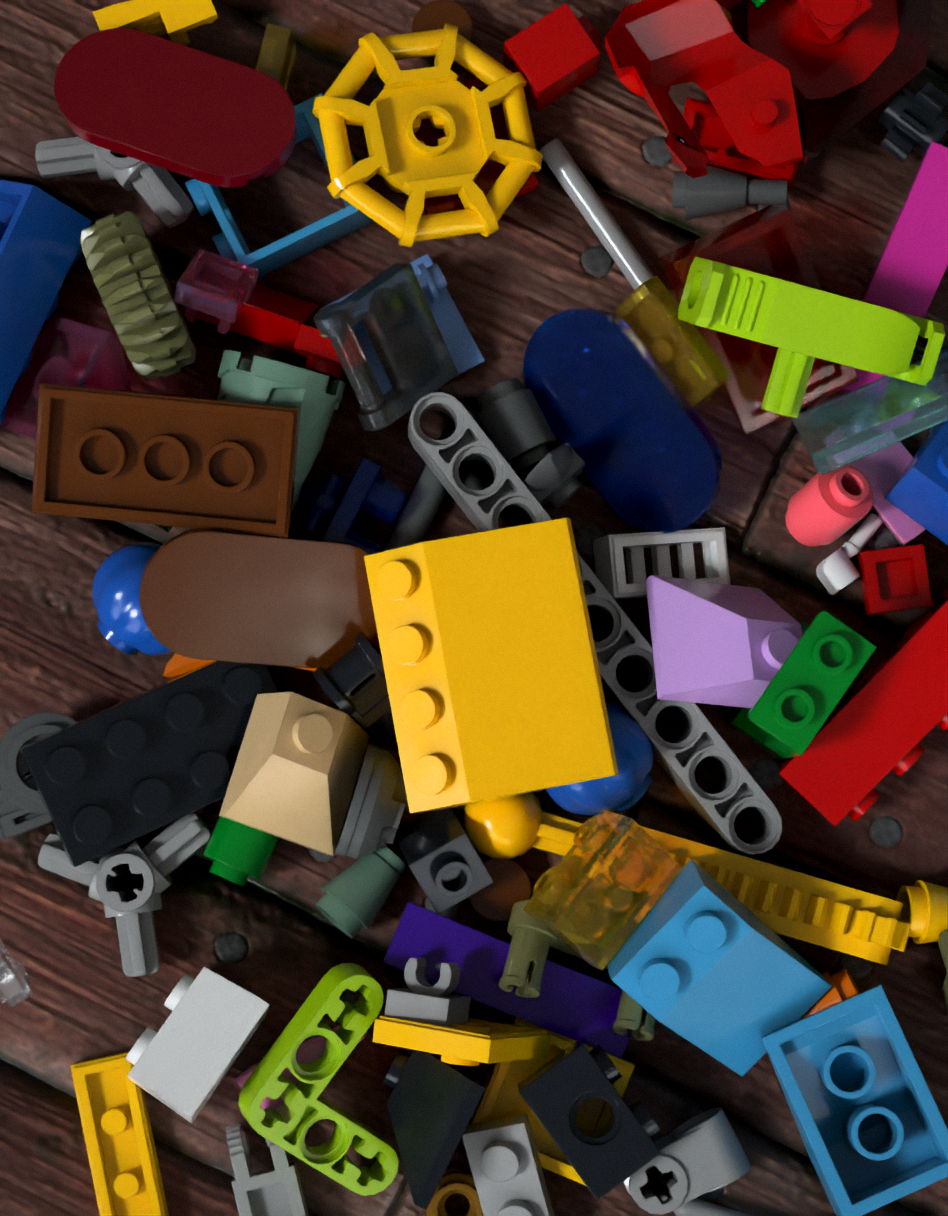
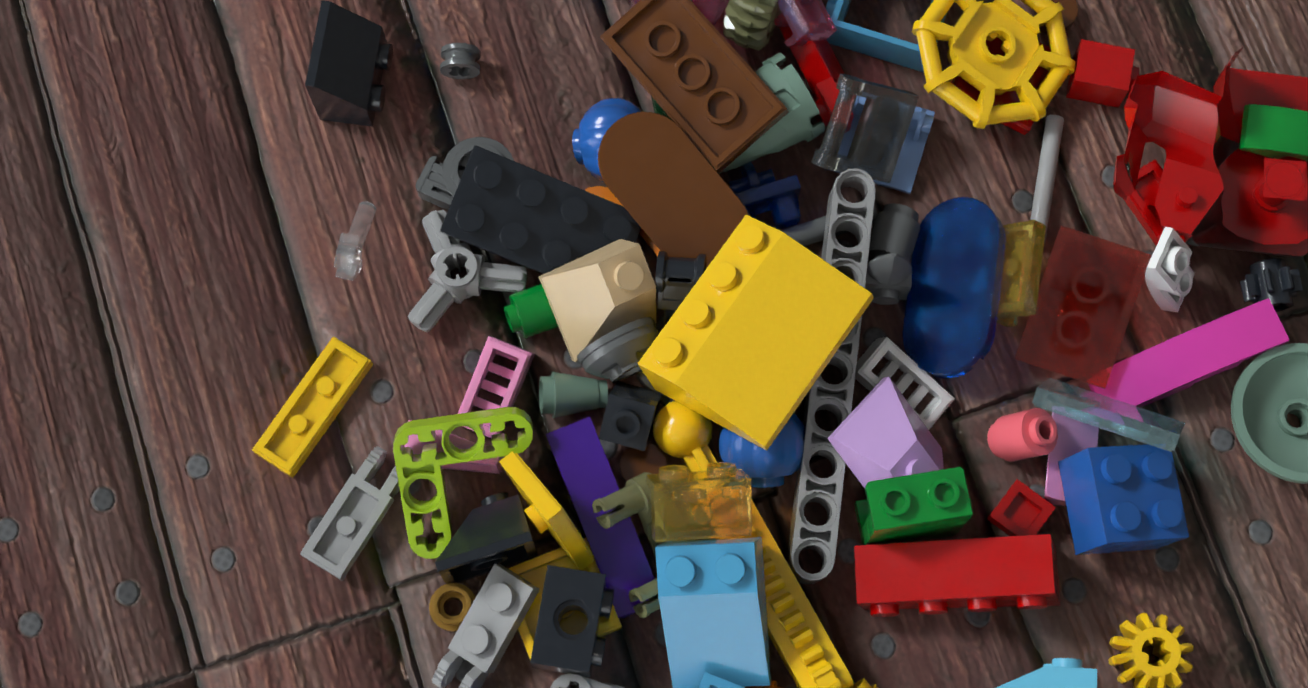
camera: 45 degrees right, 10 degrees down
(197, 1041) = (409, 384): white slope -> none
(253, 907) = (492, 347): none -> bright pink slope
(428, 1002) = (549, 472): light grey tile -> none
(723, 192) = (1123, 220): dark grey cone -> none
(806, 326) = (1103, 323): lime piece -> none
(814, 203) = (1168, 271): none -> white slope
(837, 569) = (995, 477): white hand -> none

